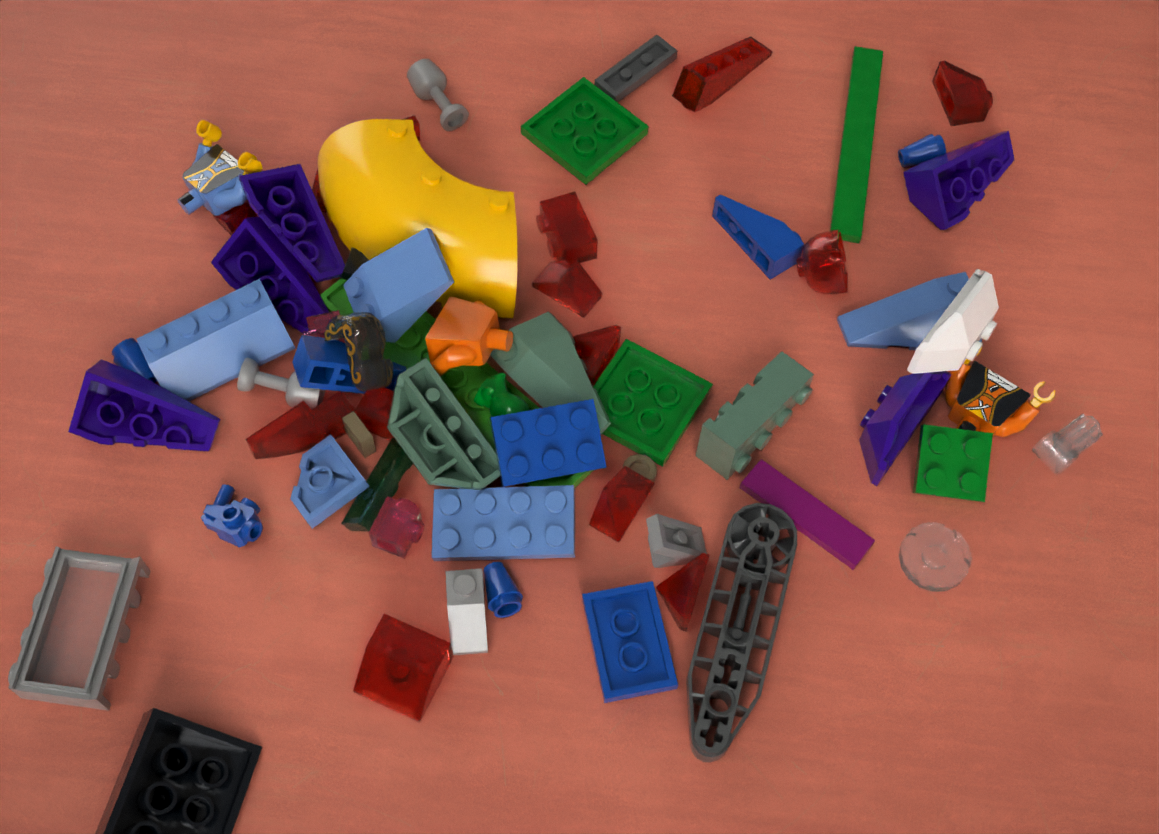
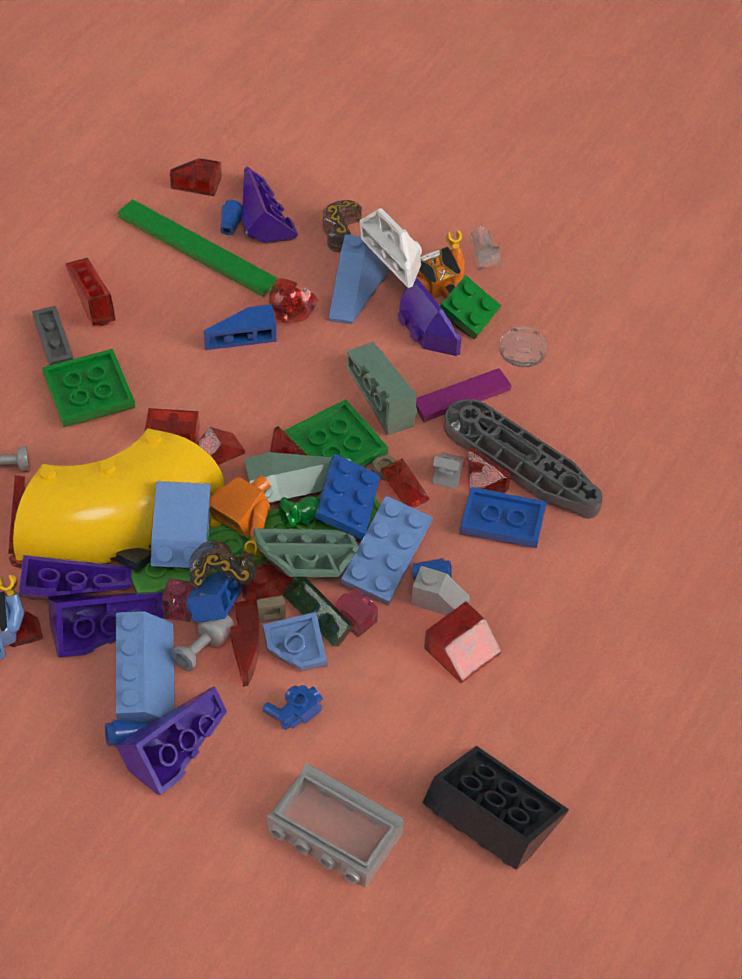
camera: 65 degrees left, 10 degrees down
(1000, 253) = (335, 221): none -> clear smoke animal

